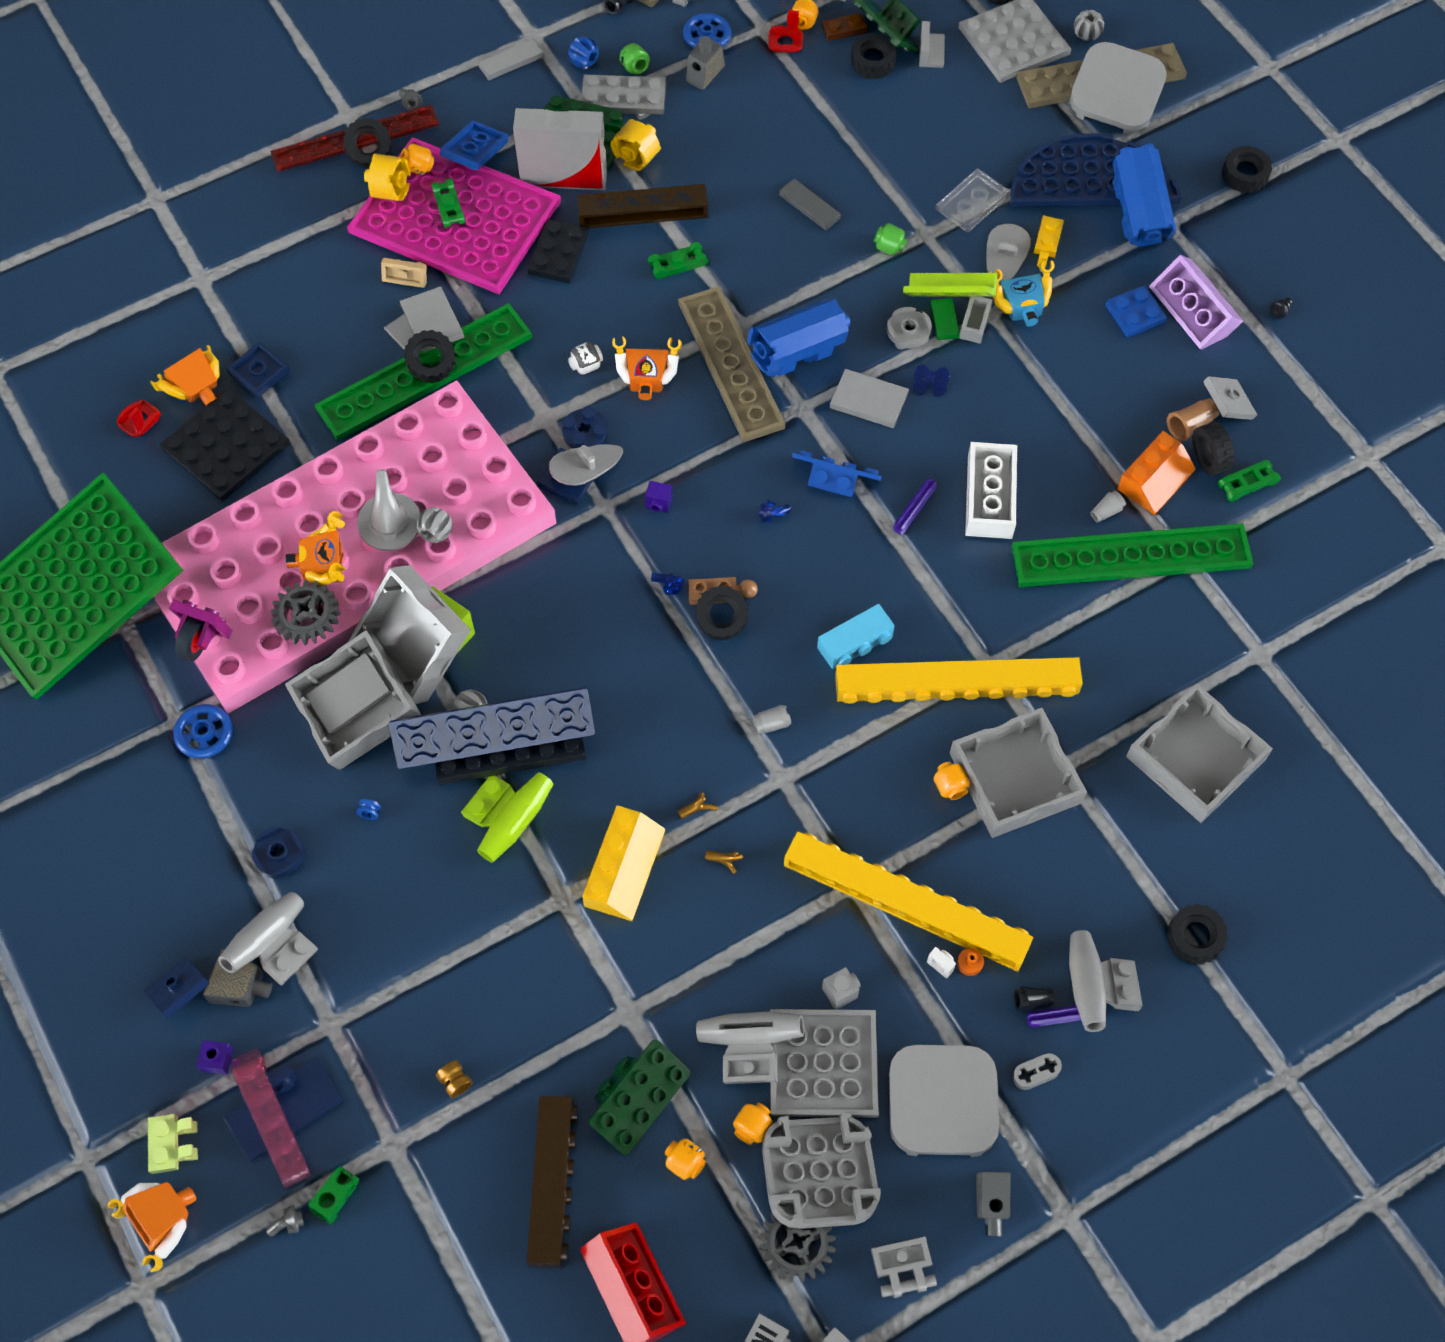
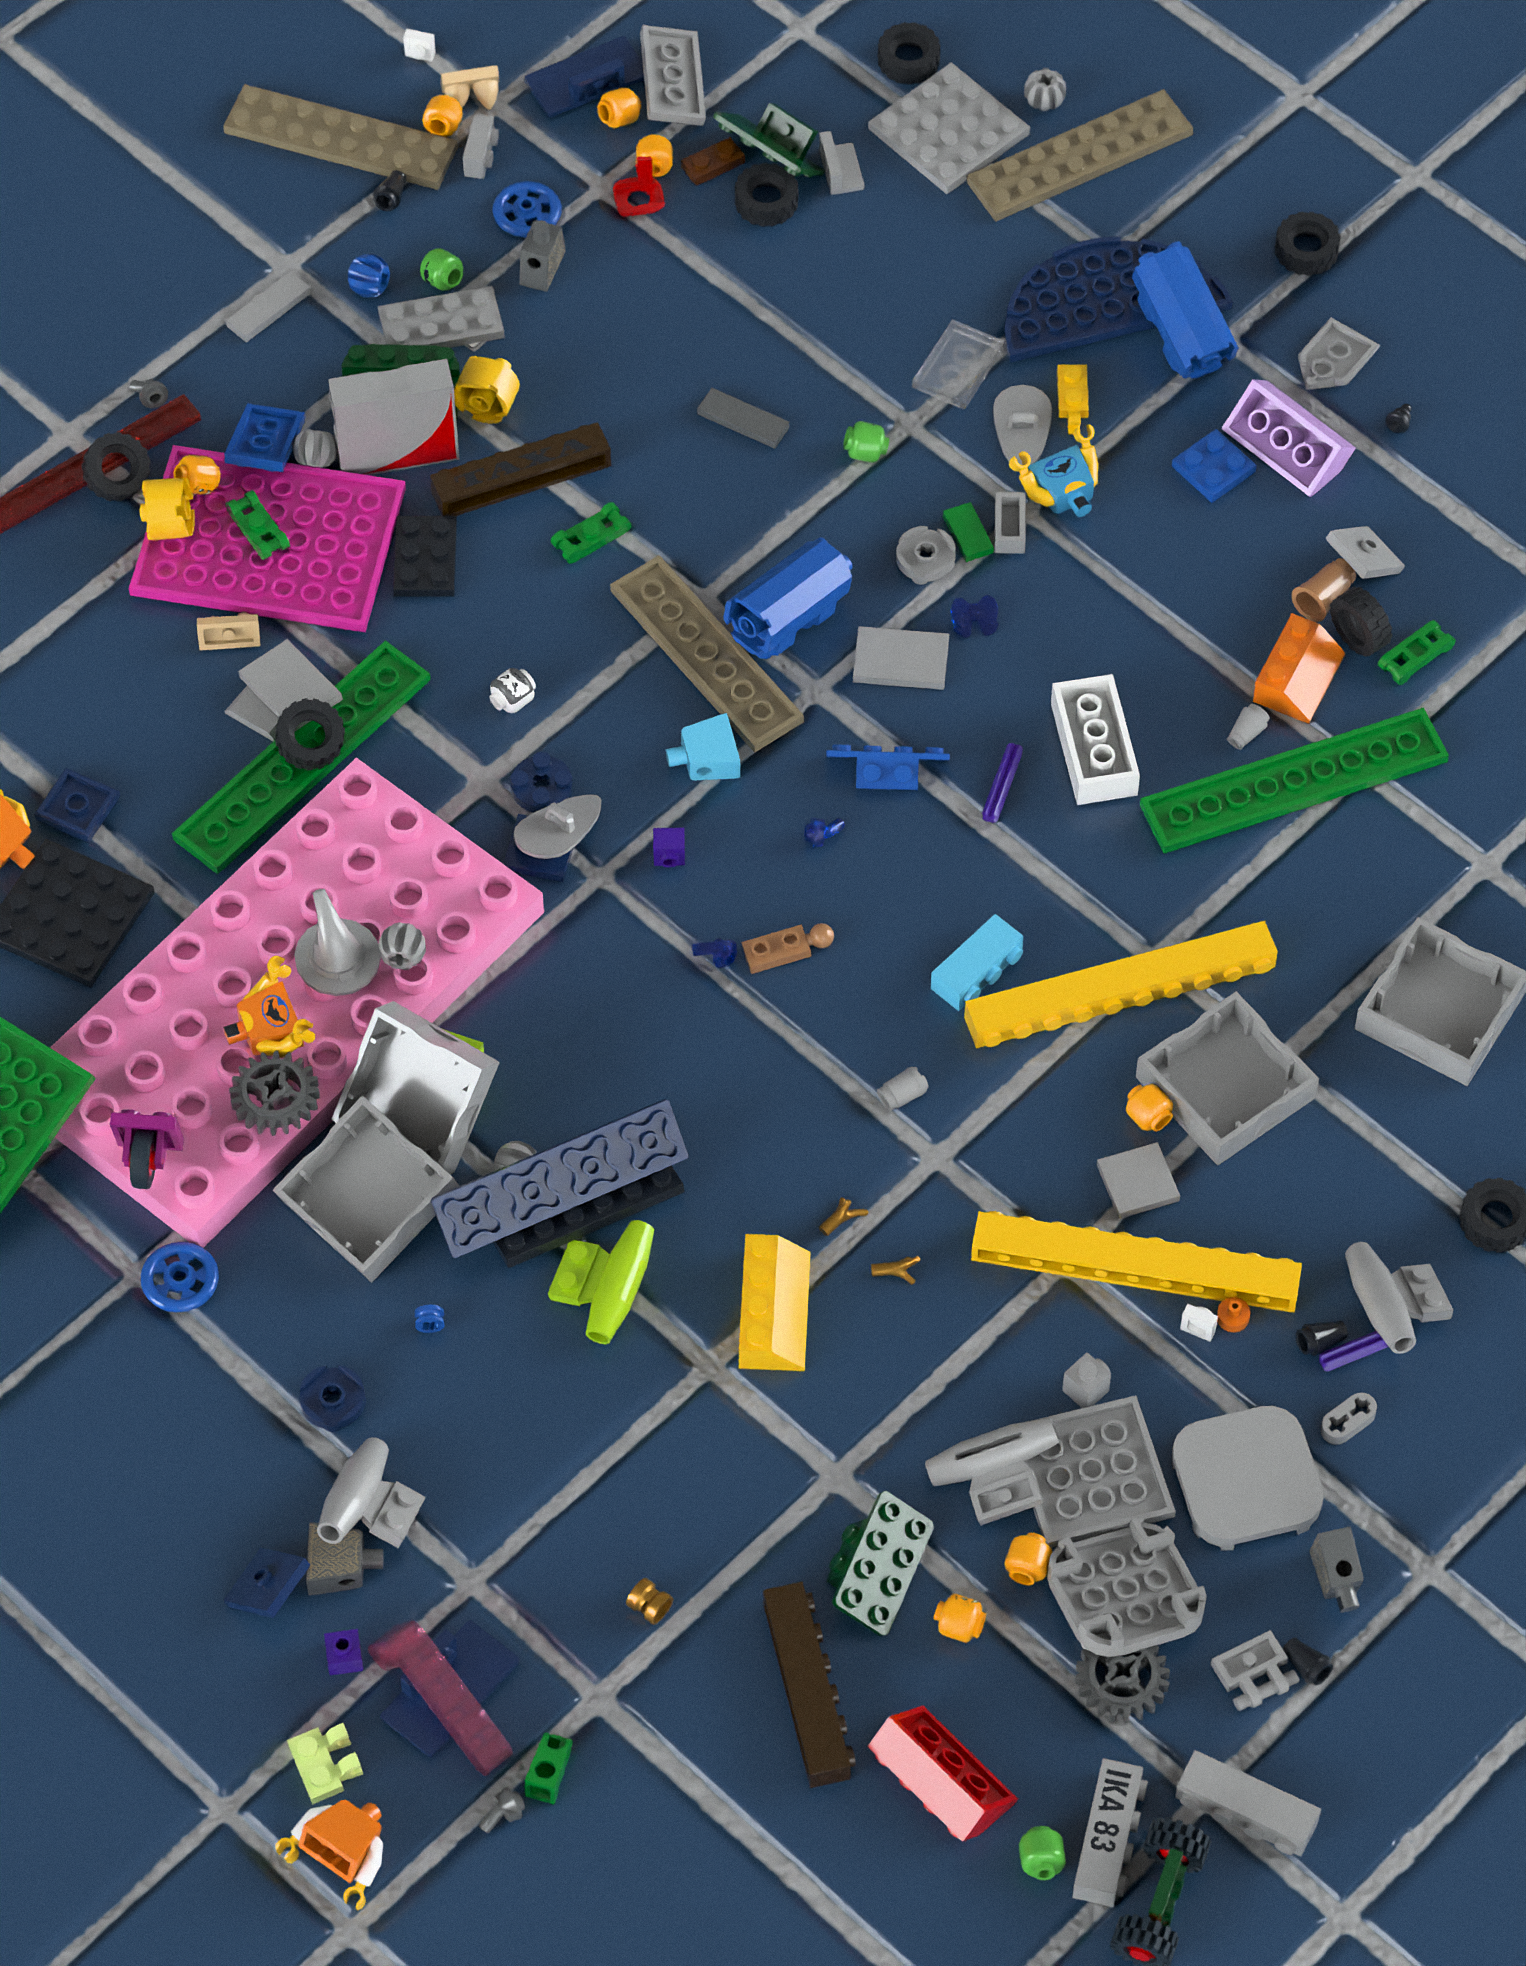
camera: 15 degrees left, 5 degrees down
(348, 694) = (357, 1183): light grey tile -> none
(504, 160) = (315, 448): none -> light grey piece
(646, 368) = (599, 685): torso -> none
(708, 432) = (707, 750): none -> medium azure torso
(715, 595) = (807, 949): black tyre -> none
(927, 835) = (1138, 1180): none -> light grey tile
(948, 1271) = (1309, 1662): none -> black cone
(951, 285) = (967, 485): lime fence -> none
(1118, 86) = (1108, 168): light grey tile -> none
(1245, 252) = (1334, 356): none -> light grey tile

